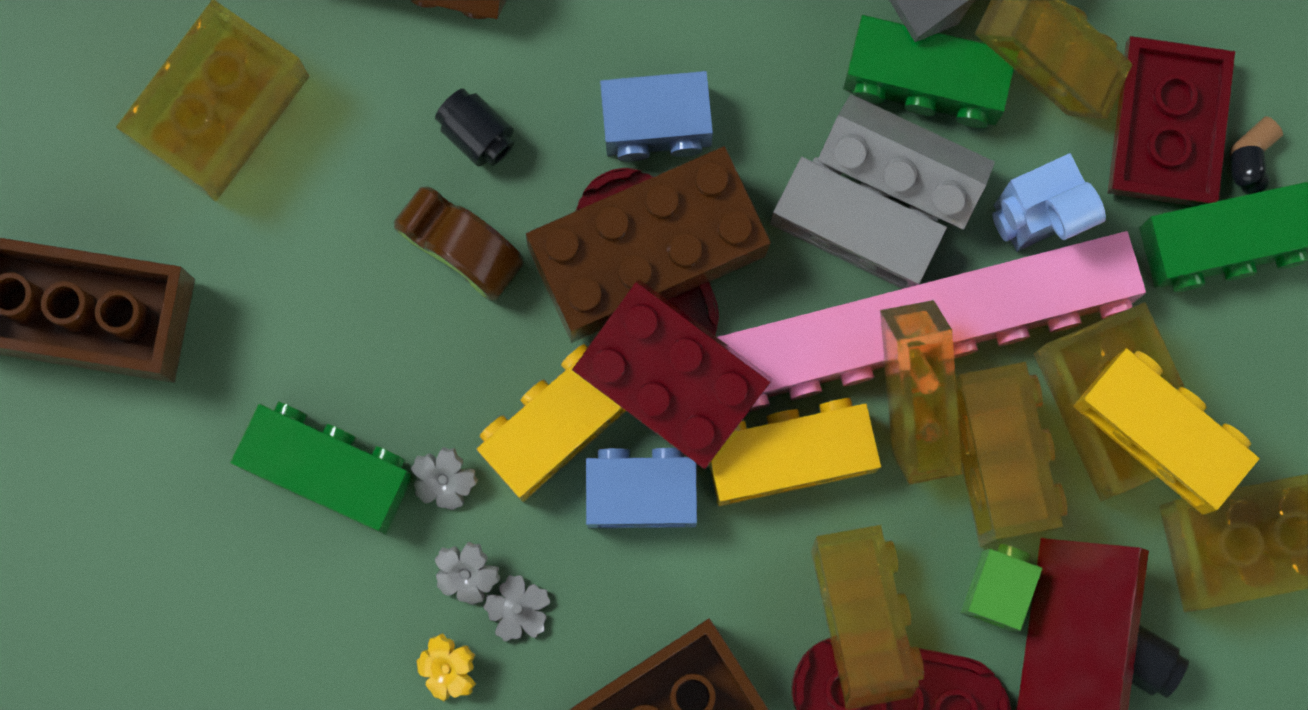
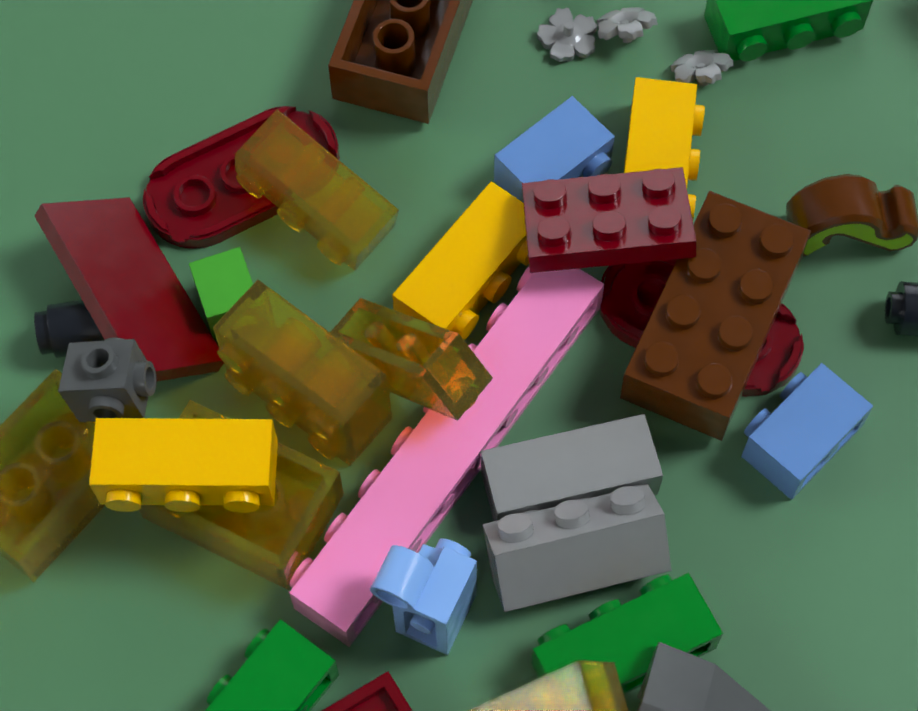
camera: 140 degrees right, 15 degrees down
(1178, 545) = (107, 379): none -> dark grey brick

